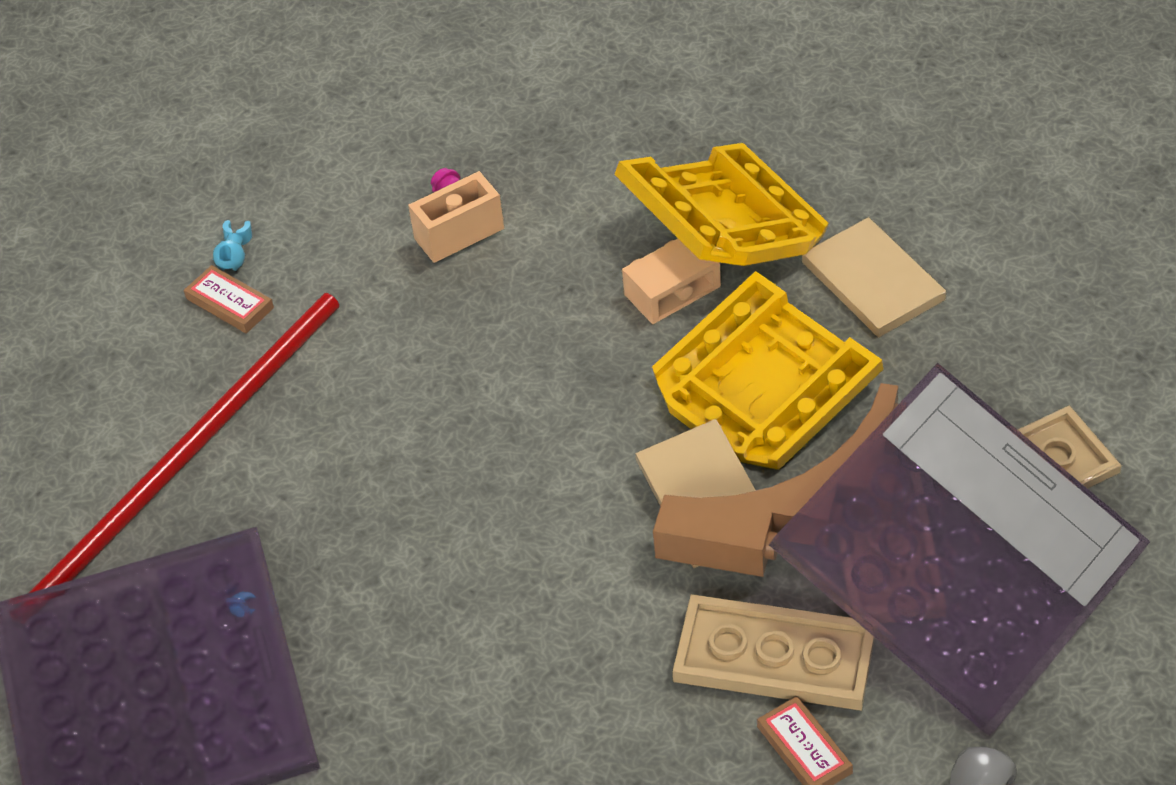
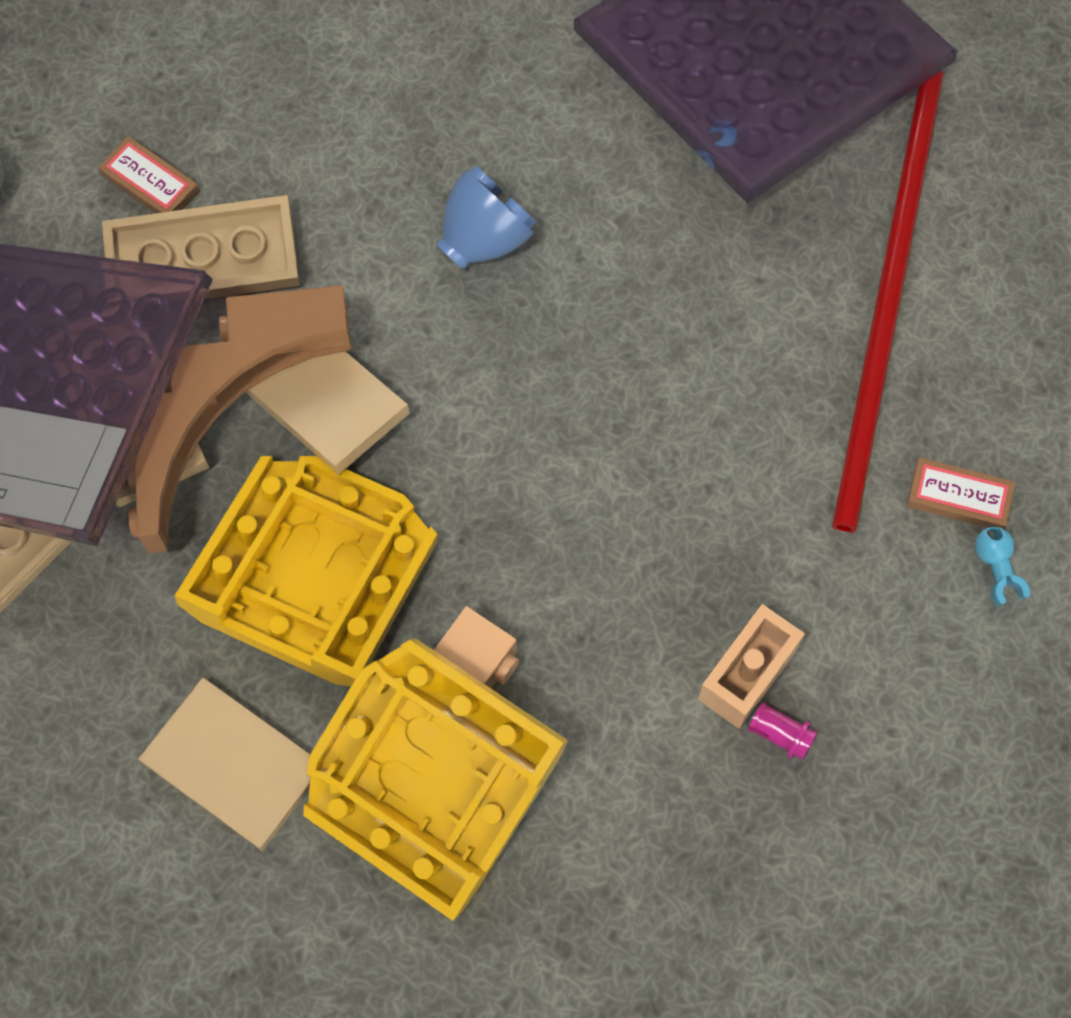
camera: 155 degrees right, 20 degrees up
(497, 588) = (479, 224): none -> medium blue piece

